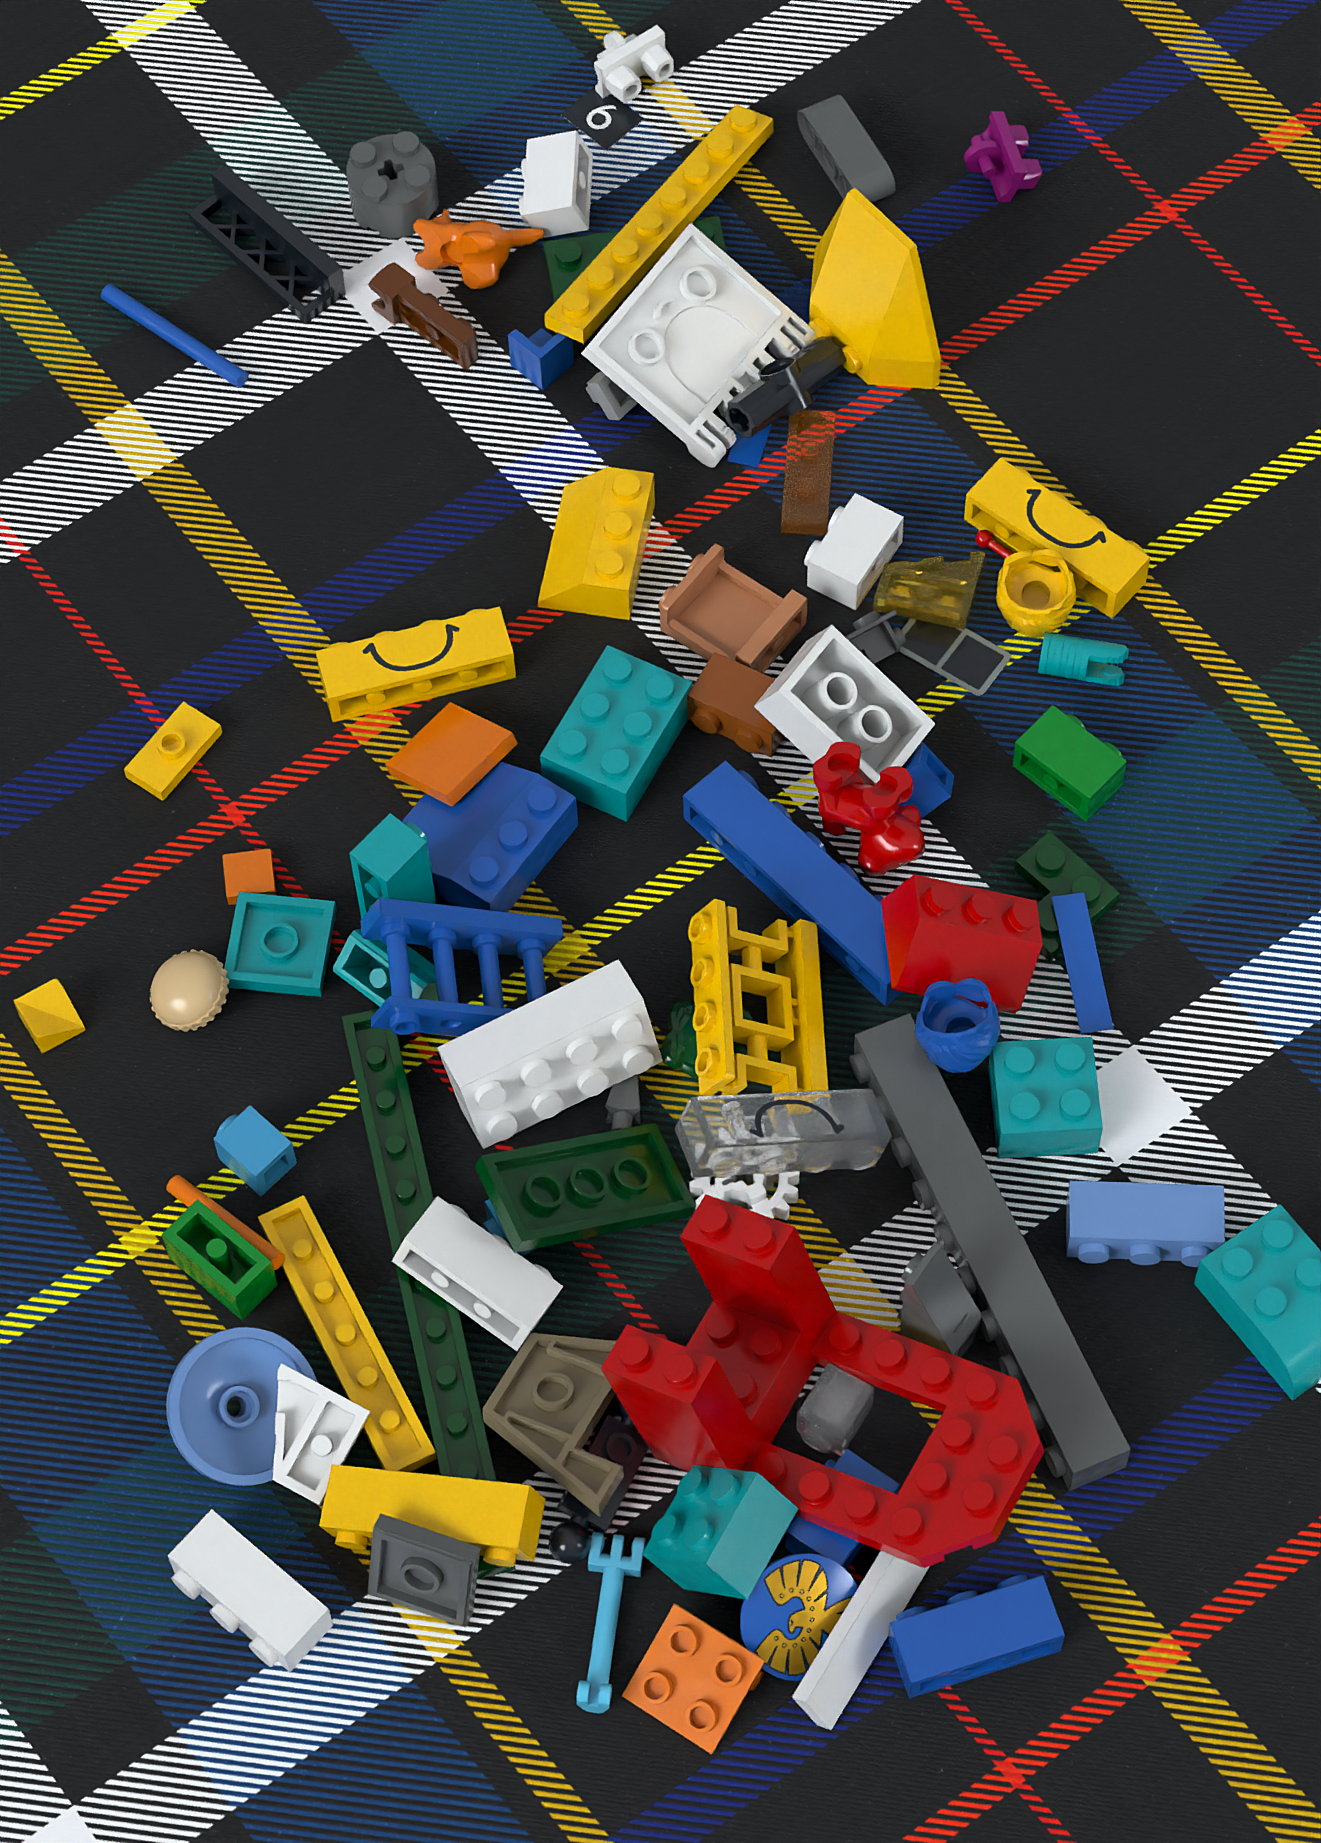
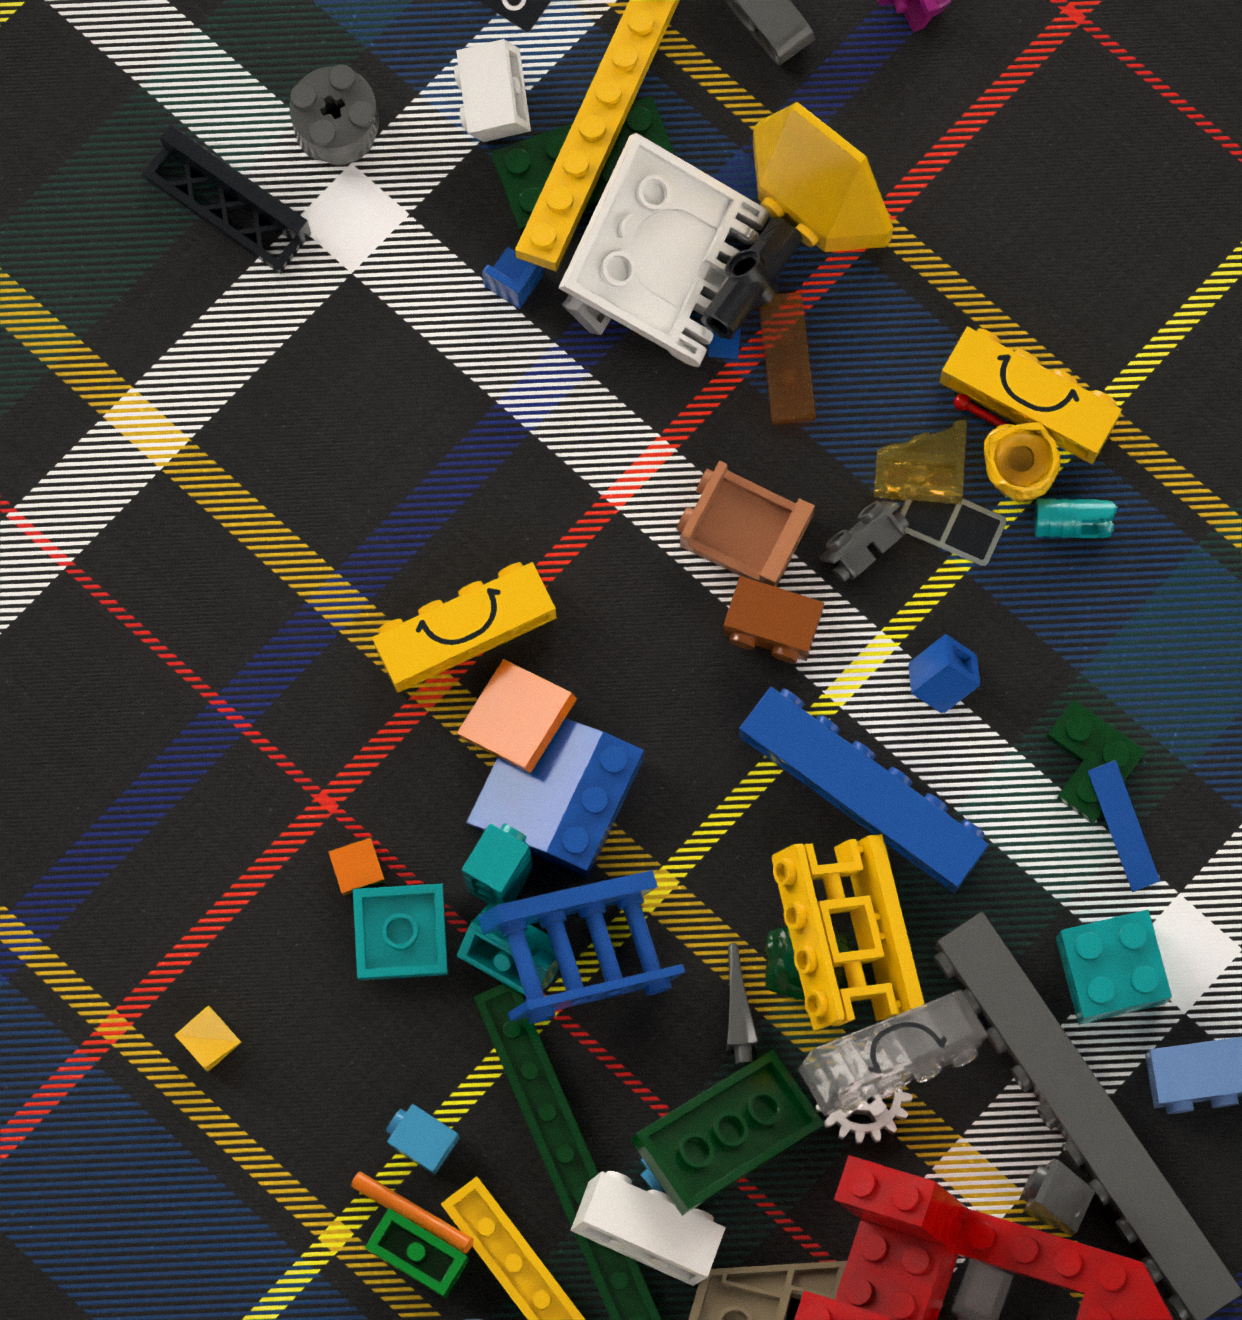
camera: 10 degrees left, 15 degrees up
(173, 751) = (258, 751): yellow plate -> none
(174, 335) = (158, 309): blue bar -> none
(189, 990) = (328, 992): tan hat -> none
(423, 314) = (364, 237): reddish brown plate -> none
(474, 247) = (427, 170): orange animal -> none
(551, 1054) = (673, 1011): white brick -> none
(599, 544) = (606, 472): yellow slope -> none
(617, 732) = (664, 668): teal brick -> none
(841, 696) = (872, 625): white brick -> none
(853, 551) = (846, 440): white brick -> none
(888, 831) = (923, 723): red animal -> none
(955, 1030) = (1029, 925): blue hair -> none
(960, 933) = (1017, 838): red slope -> none
(1069, 762) = (1081, 627): green brick -> none

